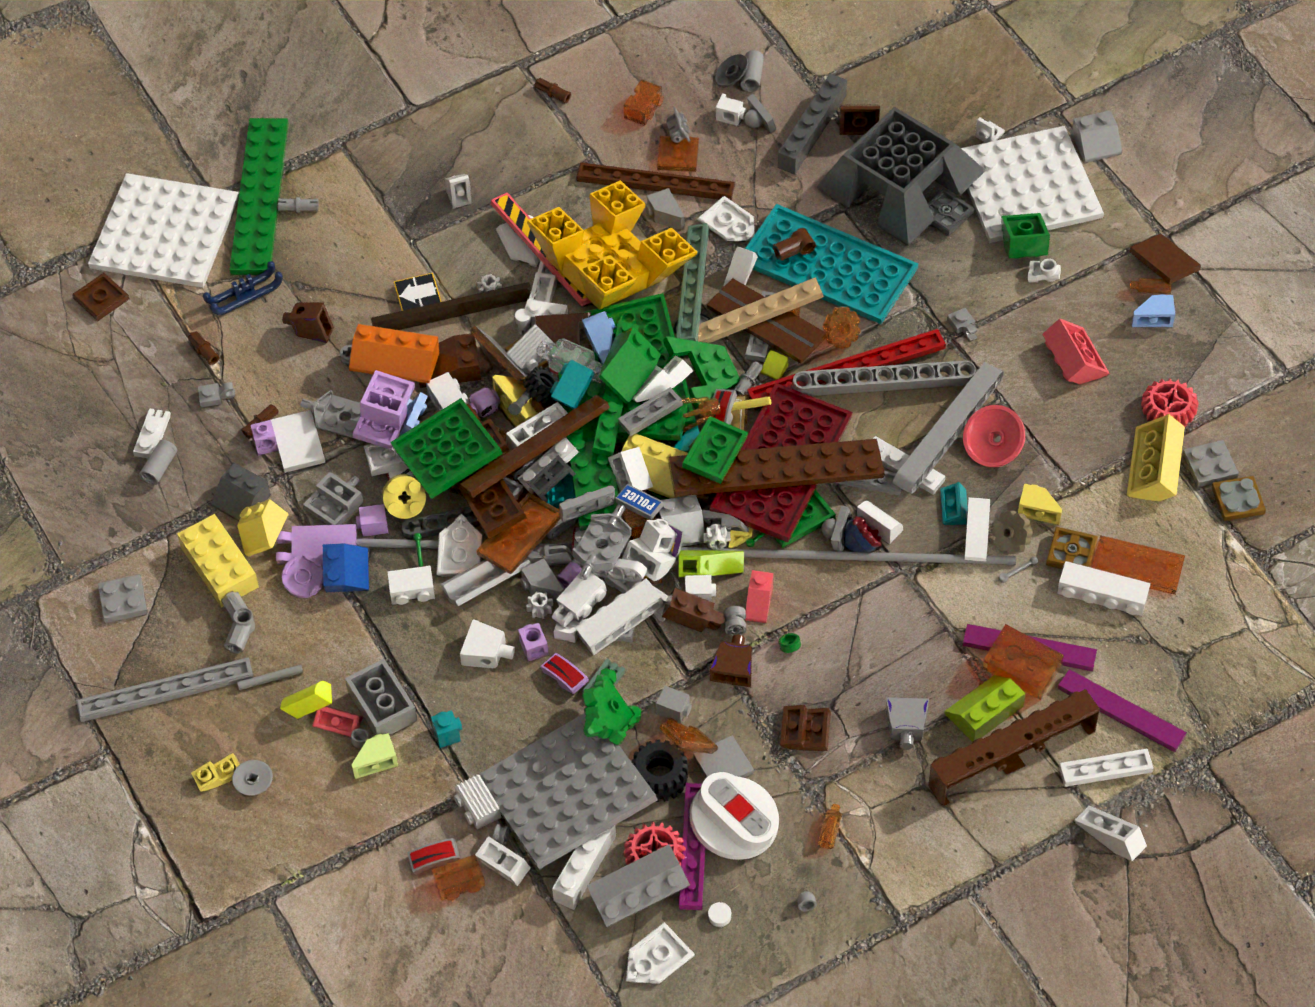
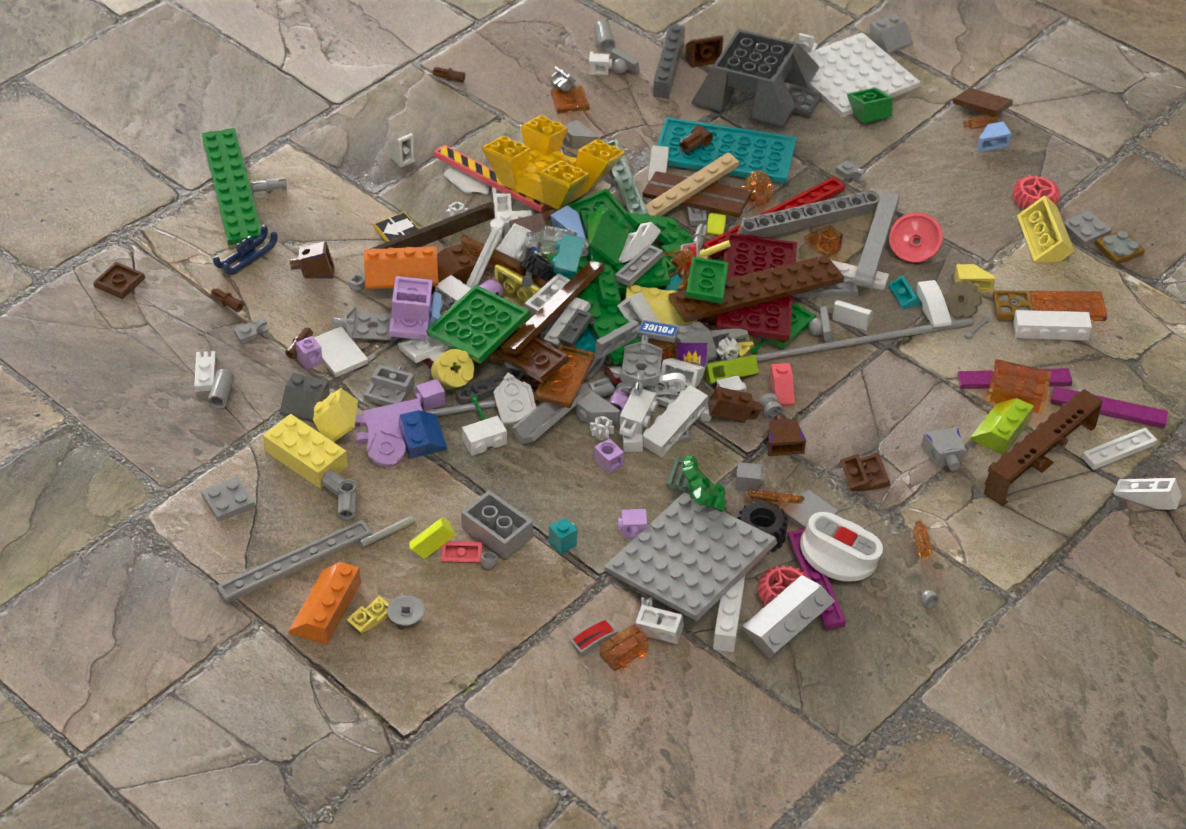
camera: 20 degrees left, 10 degrees down
(164, 230) = (157, 223): white plate -> none
(178, 748) = (327, 603): none -> orange slope
(375, 756) = (510, 569): yellowish green slope -> none
(477, 801) = (615, 585): white brick -> none
(484, 646) = (569, 467): white torso -> none
(486, 363) = (484, 257): none -> white axle
(525, 730) = (632, 522): none -> lavender brick
(565, 673) = (649, 475): slope -> none
(644, 103) = (528, 70): clear orange brick -> none
(655, 181) = (589, 119): reddish brown tile -> none
(657, 956) = (824, 670): white tile -> none
(658, 535) = (685, 352): white brick -> none
(719, 914) = (861, 626): white tile -> none
(729, 221) = (632, 136): white tile -> none
(731, 70) = (588, 37): dark grey dish -> none
(789, 643) = (822, 413): green tile -> none
(860, 536) = (844, 325): hair -> none
(889, 415) = (826, 240): none -> clear orange slope
(1046, 270) = (897, 125): white plate -> none
(1074, 352) = (945, 174): coral slope -> none

